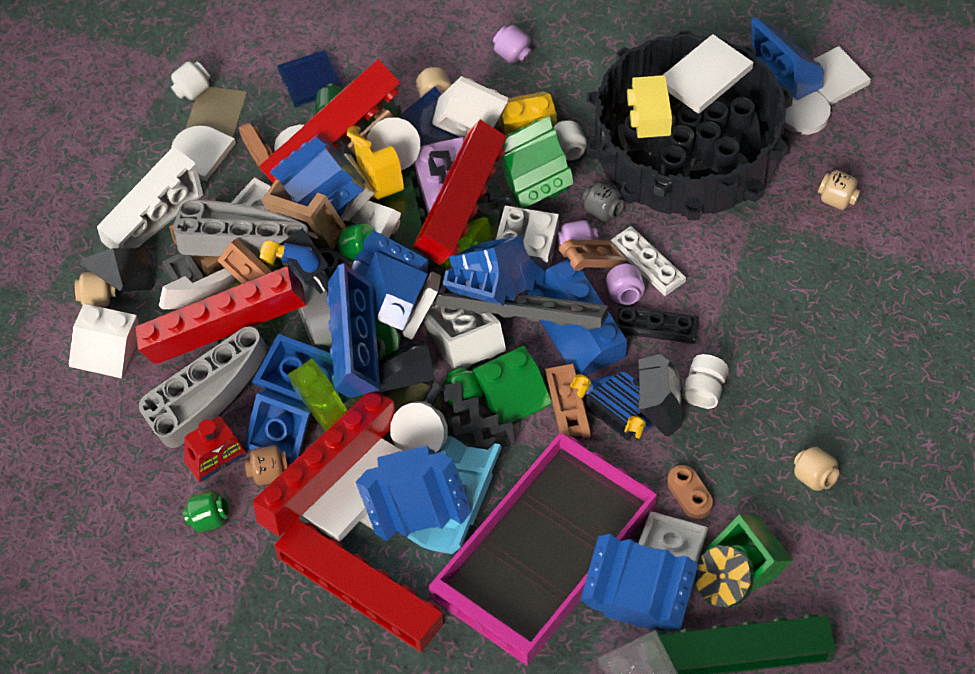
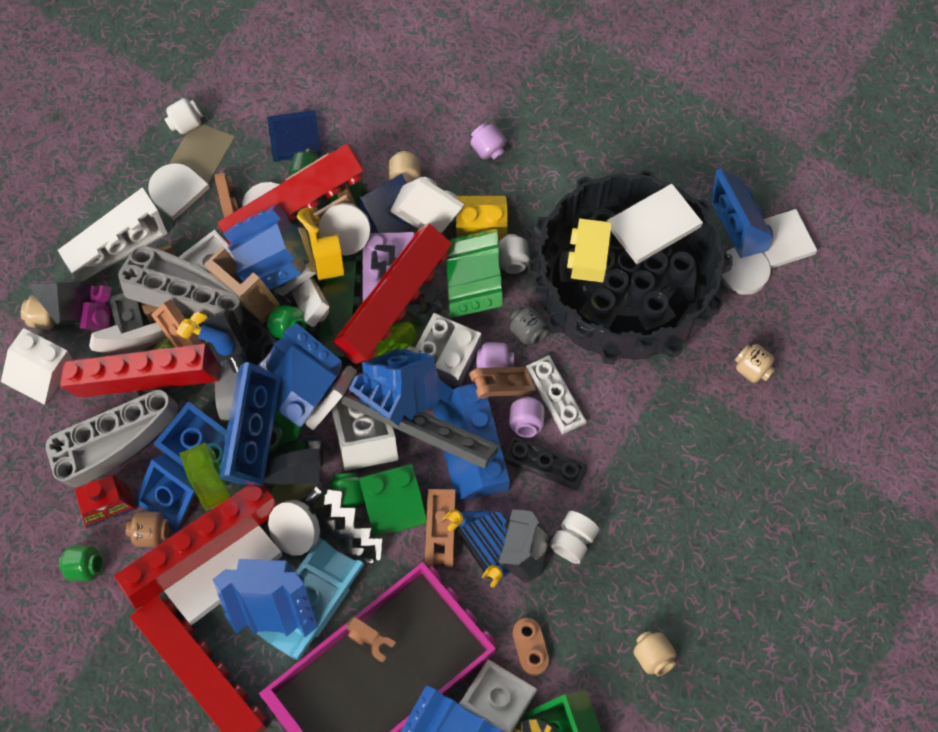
camera: 10 degrees right, 10 degrees up
(152, 276) = (95, 313): none -> magenta plate
(523, 505) = (363, 633): none -> nougat plate

